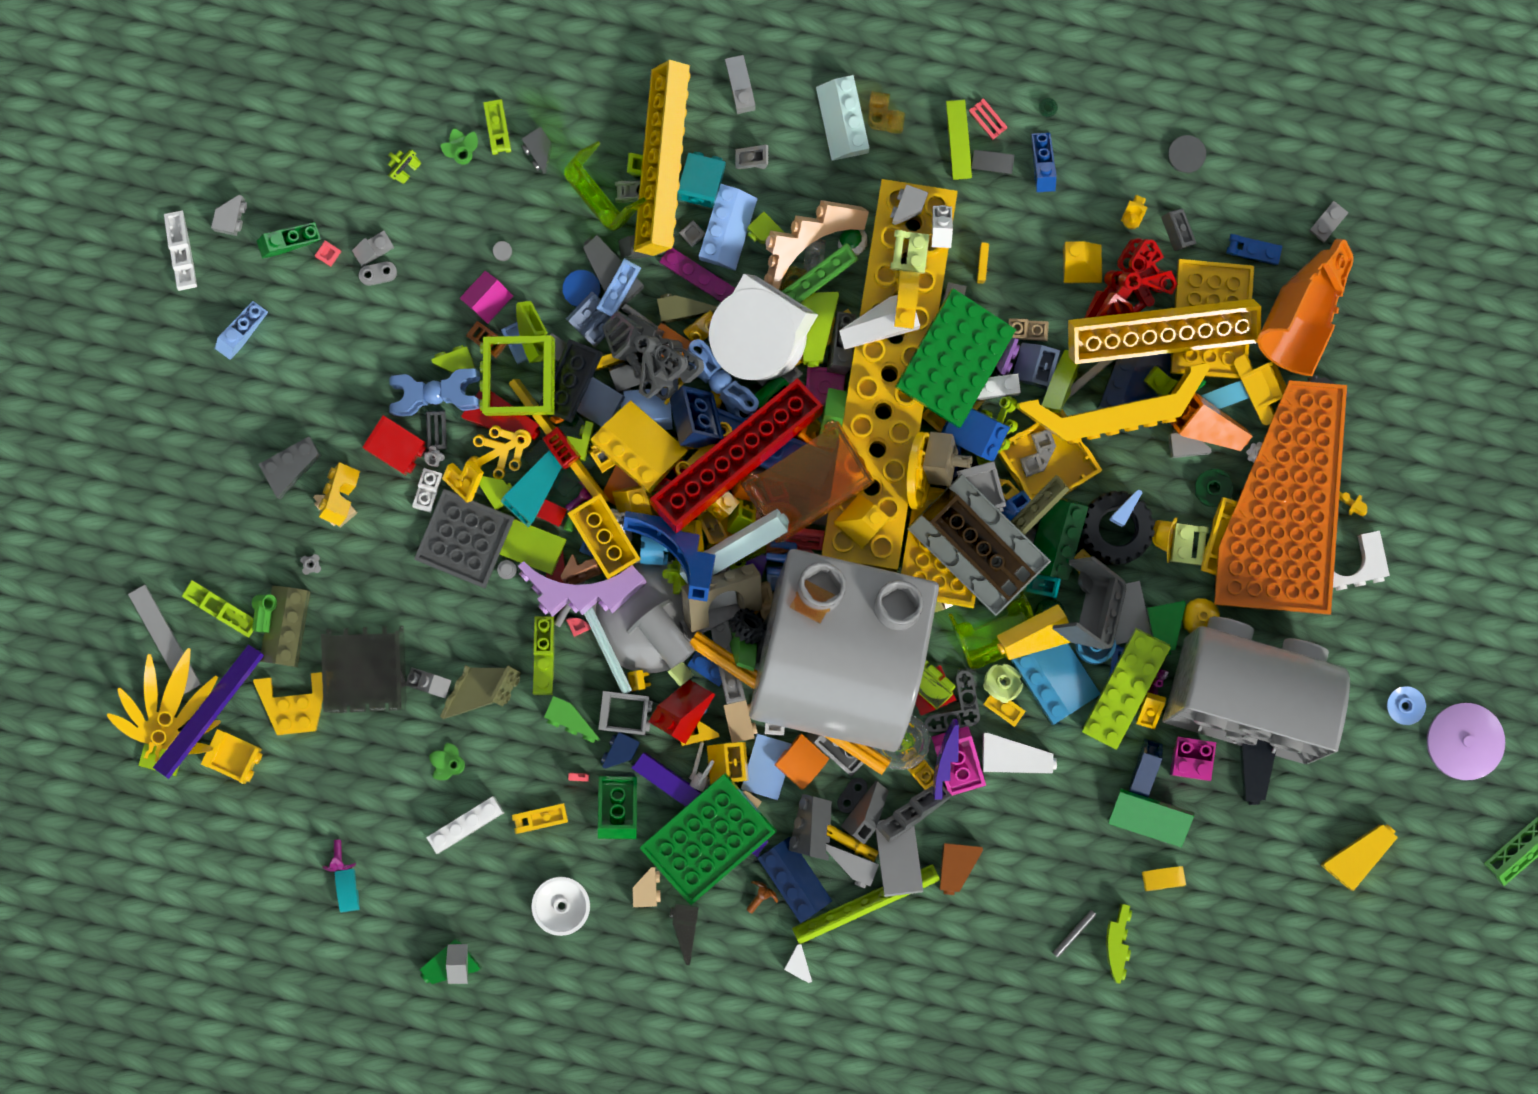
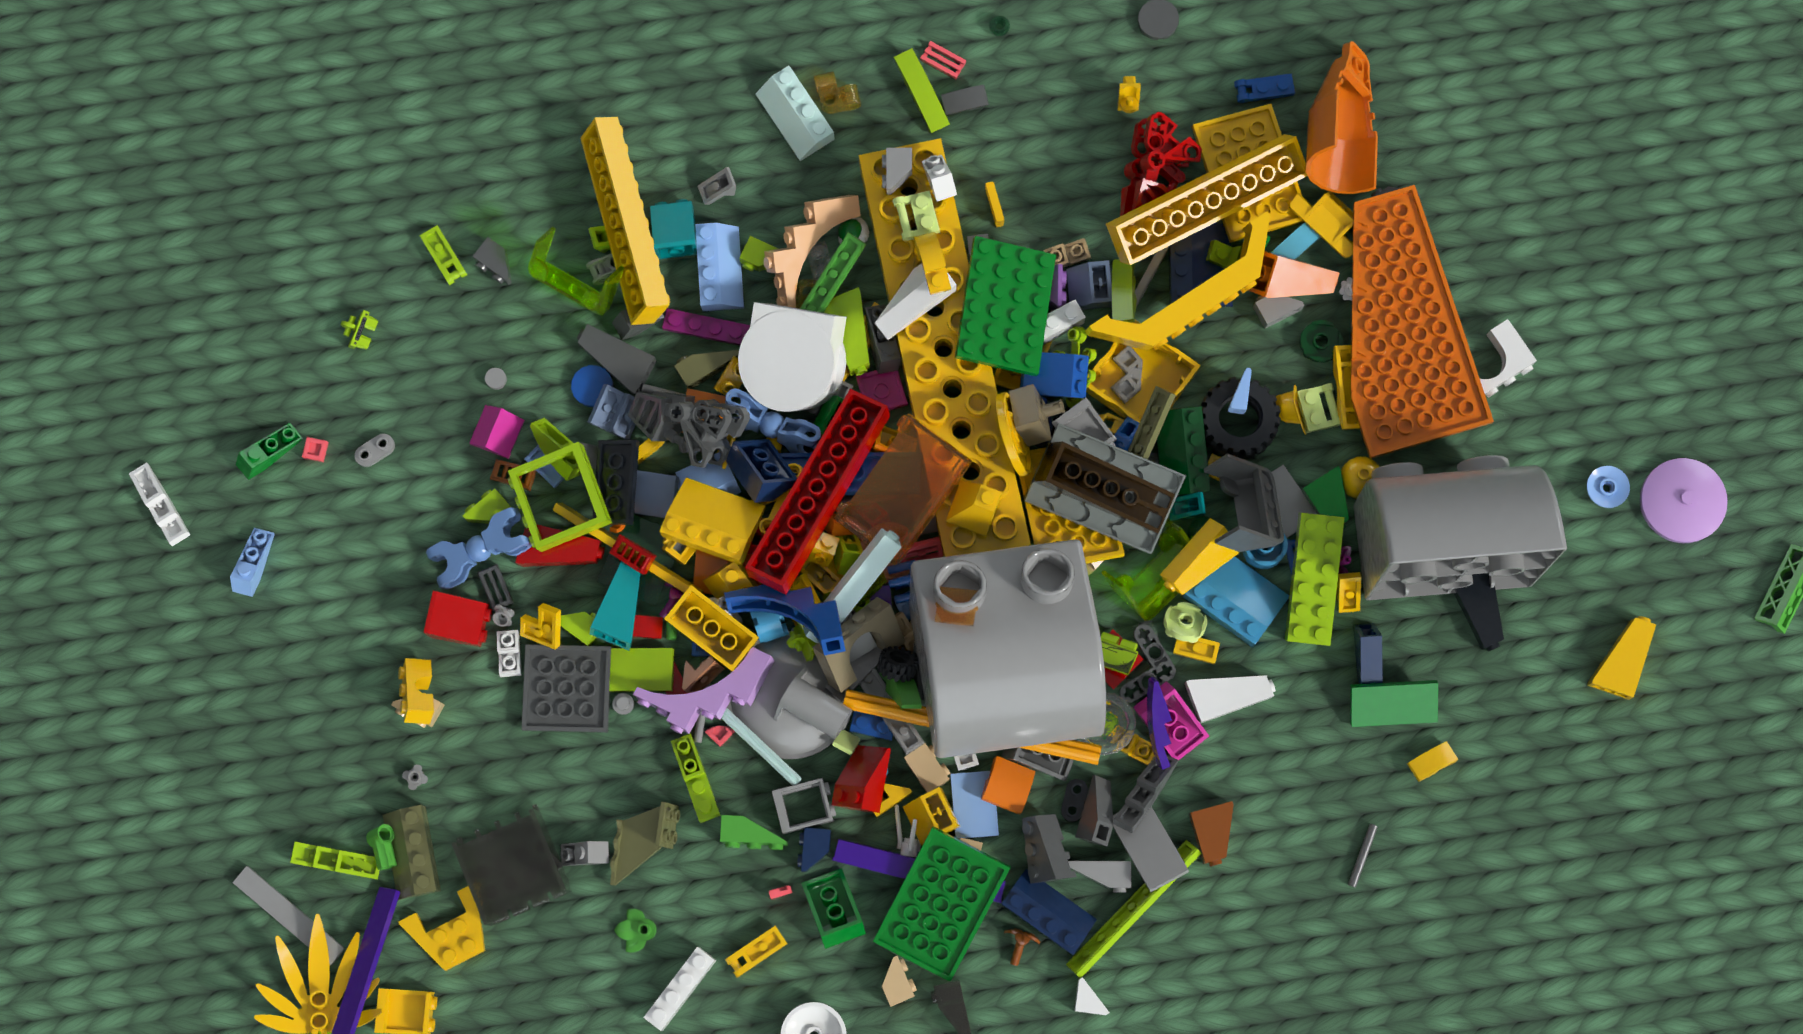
camera: 15 degrees left, 5 degrees down
(228, 216) = (197, 450): light grey slope -> none
(289, 465) = (354, 682): dark grey wedge -> none
(373, 248) = (360, 426): light grey slope -> none
(460, 144) = (411, 287): bright green plate -> none
(502, 449) = (571, 580): yellow plant -> none
(582, 445) = (652, 544): lime slope -> none
(618, 287) = (630, 368): light blue tile -> none
(623, 377) = (670, 458): dark grey slope -> none
(636, 680) = (803, 767): yellow tile -> none
(692, 233) = (685, 287): light grey tile -> none
(740, 84) = (677, 120): light grey slope -> none
(834, 407) = (899, 404): bright green window -> none
(851, 843) = (1094, 850): yellow pin -> none
(1043, 162) = (1017, 81): blue slope -> none
(1082, 262) = (1095, 166): yellow slope -> none
(1116, 951) = (1414, 857): lime slope -> none
(1178, 229) = (1180, 97): dark grey slope -> none
(1193, 759) = (1412, 625): dark pink slope -> none
(1328, 221) = (1328, 32): light grey plate -> none
(1356, 506) = (1475, 304): yellow arm -> none

